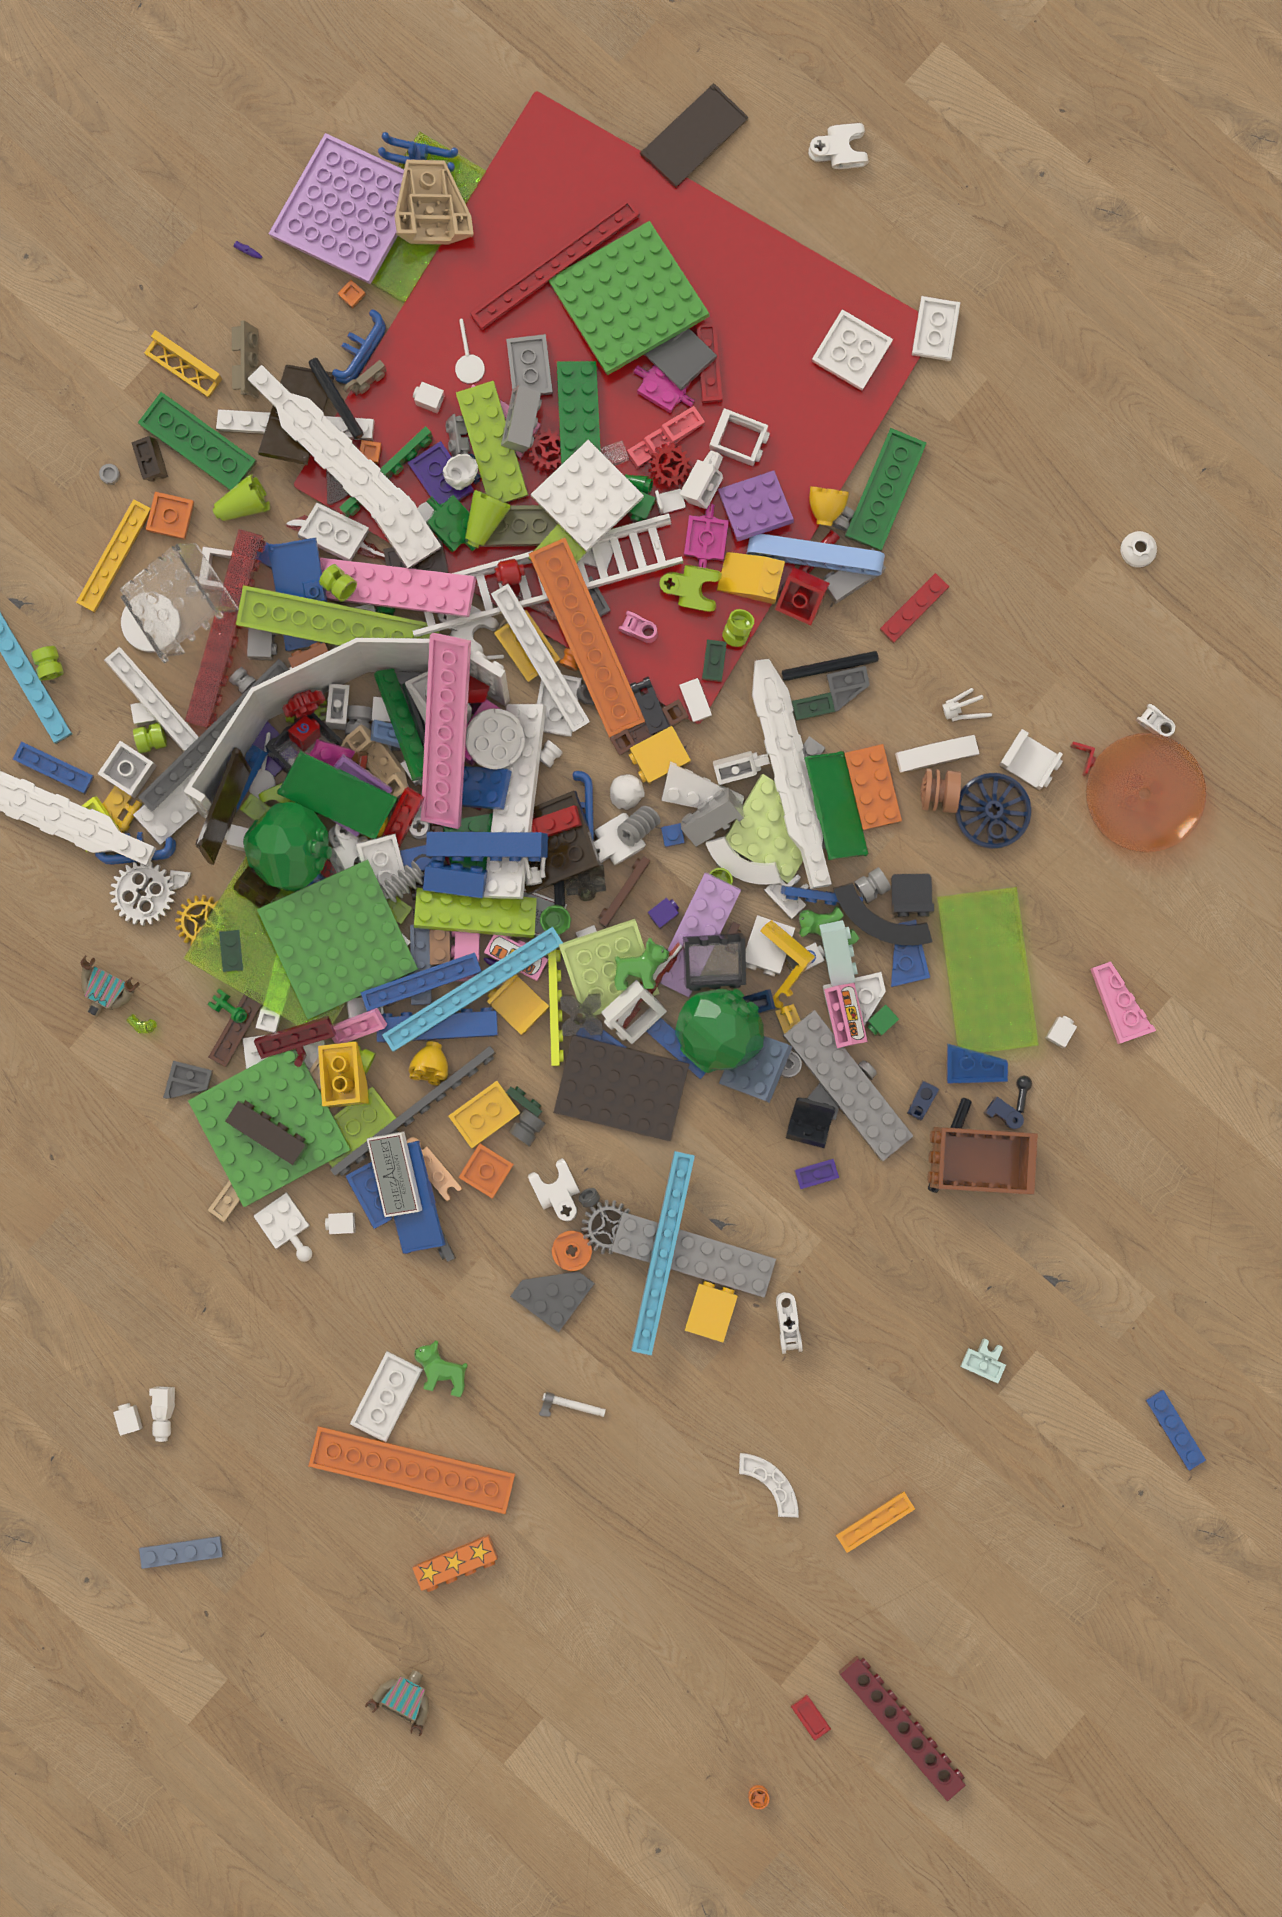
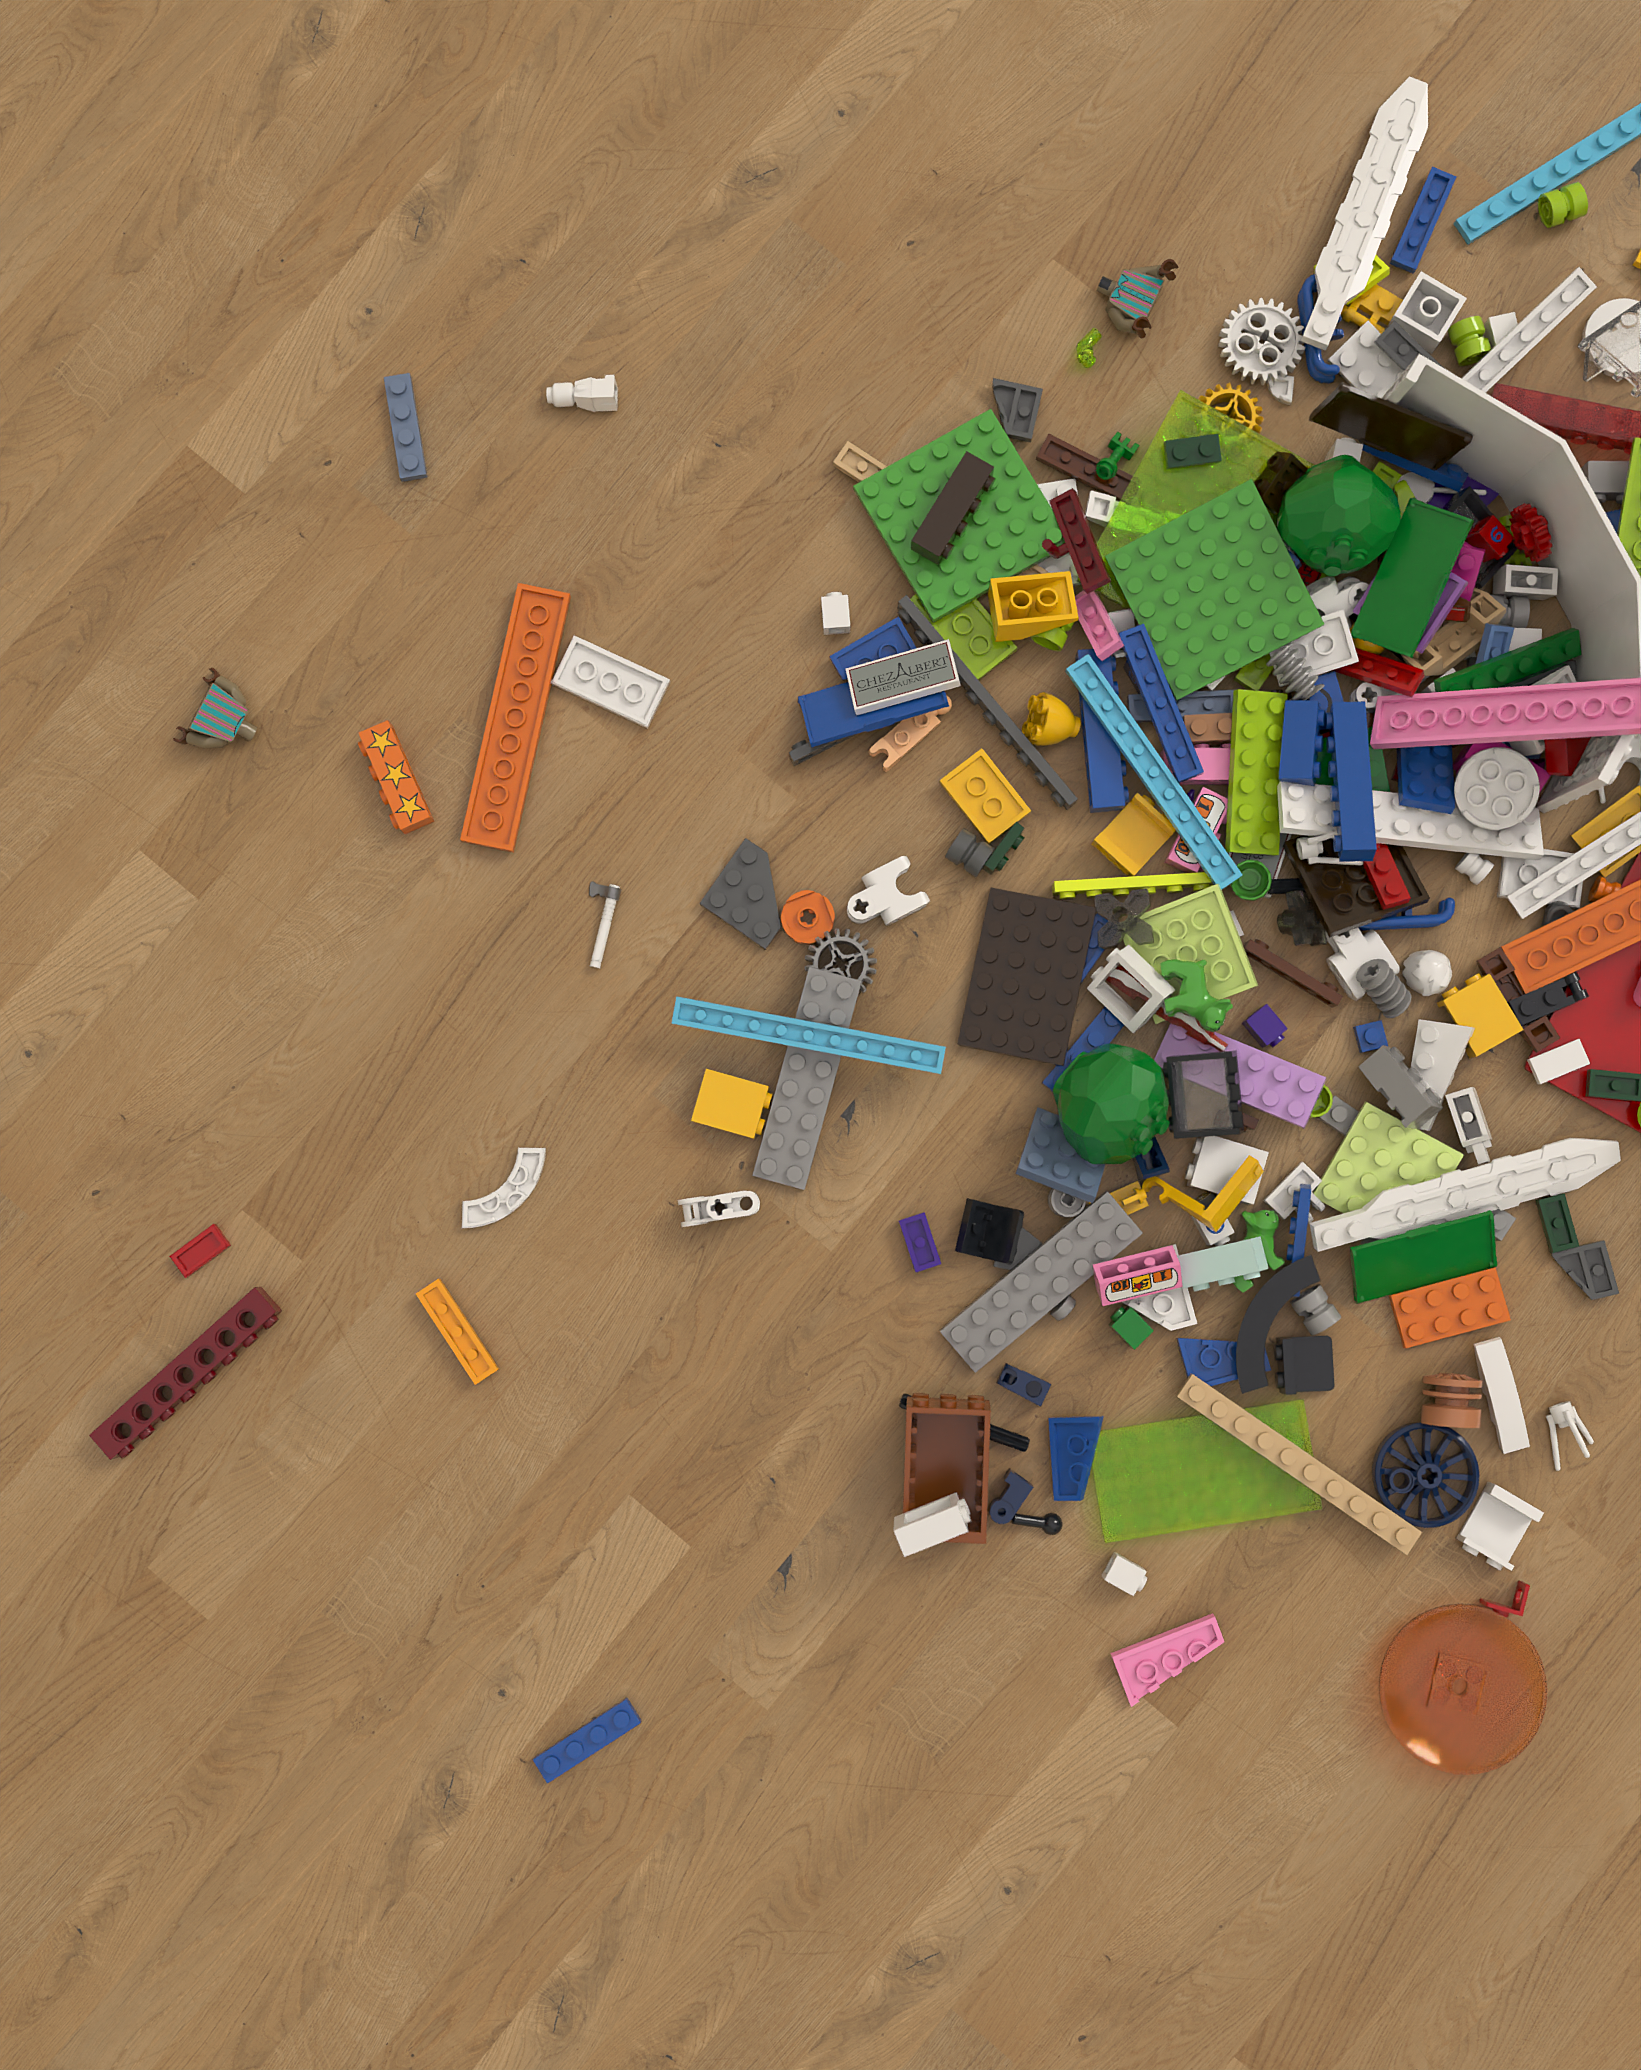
camera: 90 degrees right, 0 degrees up
(127, 1419) = (574, 351): white brick -> none
(282, 1223) = (833, 539): white plate -> none
(439, 1369) = (647, 747): bright green animal -> none
(486, 1171) = (910, 801): orange plate -> none
(589, 1197) = (879, 937): dark grey tile -> none
(740, 868) = (1331, 1129): white tile -> none
(758, 1800) = (90, 1185): orange wheel -> none
(829, 666) = (1614, 1245): black axle -> none
(983, 903) = (1299, 1464): none -> tan plate
(984, 1362) = (673, 1475): light aqua plate -> none
(1022, 1173) = (931, 1524): none -> white window
(1155, 721) = (1562, 1701): white piece -> none

